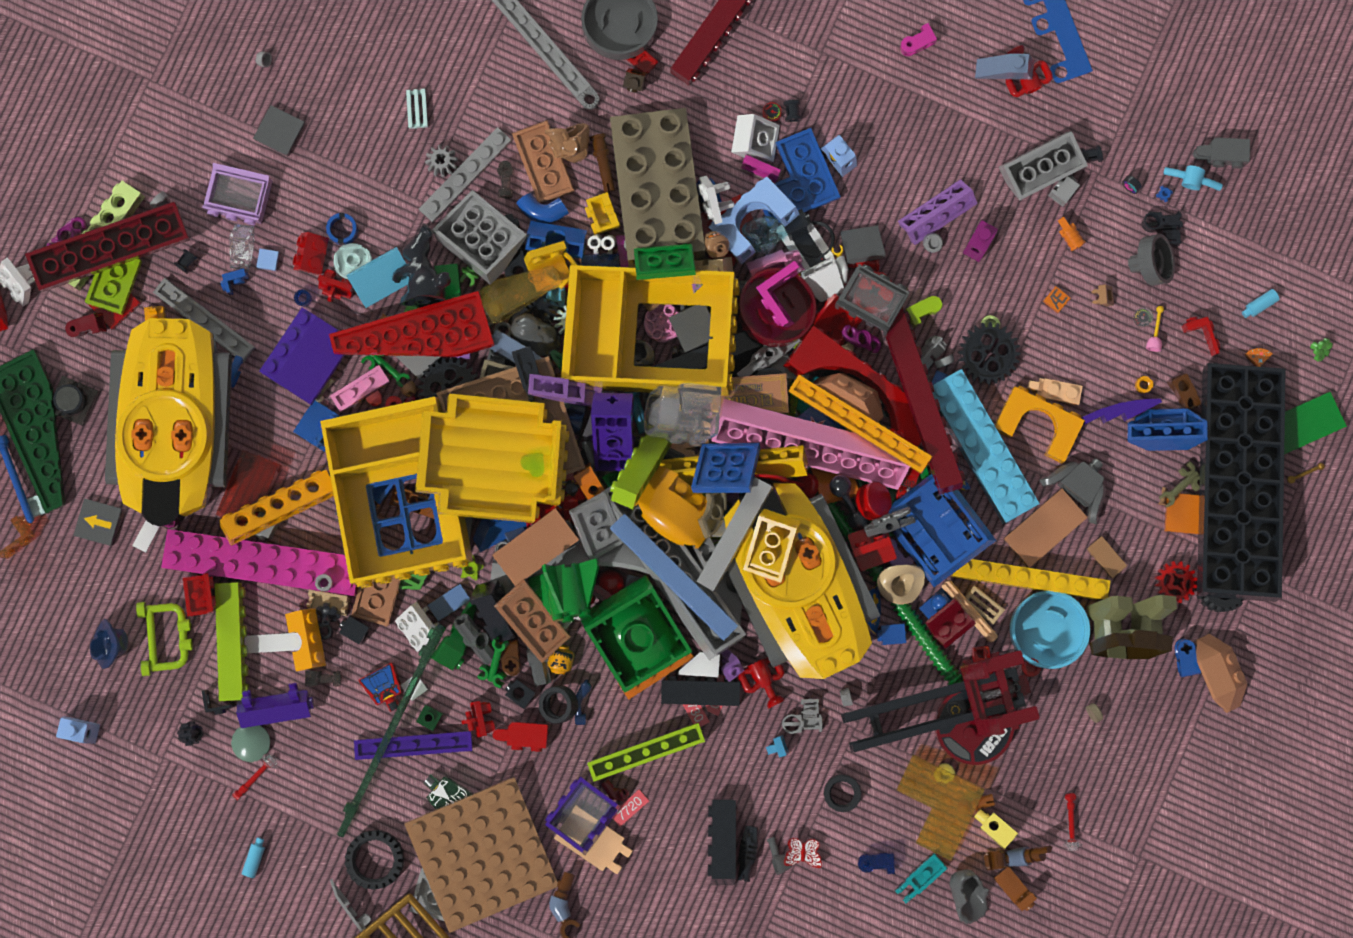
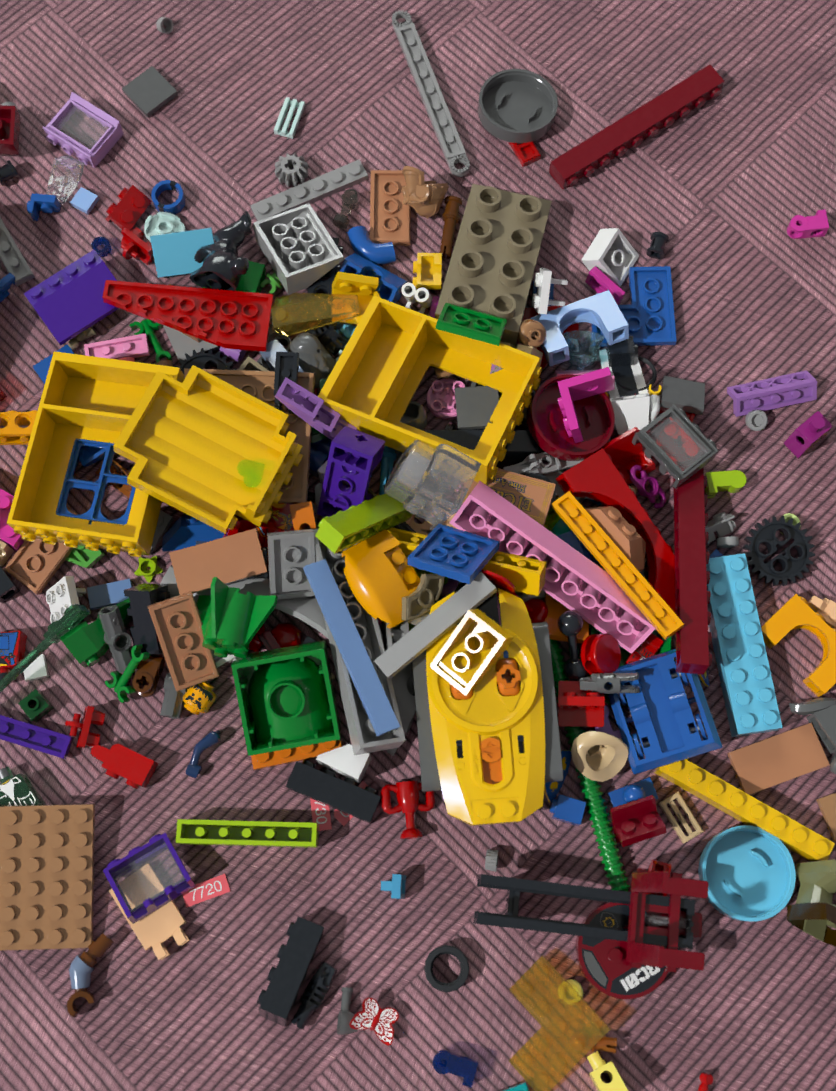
camera: 20 degrees right, 10 degrees down
(525, 700) = (147, 724): black brick -> none
(544, 704) = (162, 738): black tyre -> none
(571, 488) = (284, 521): black piece -> none
(615, 793) = (196, 867): dark red arm -> none
(634, 80) = (511, 162): dark brown brick -> none
(732, 665) = (378, 774): medium lavender bracket -> none
(772, 112) = (637, 239): tile -> none
(809, 719) = (441, 869): light grey piece -> none
(839, 155) = (688, 298): light blue torso -> none
(981, 624) = (671, 837): light nougat axle -> none
(1030, 670) = (708, 911): red tile -> none
(1094, 712) = (766, 989): dark tan tile -> none

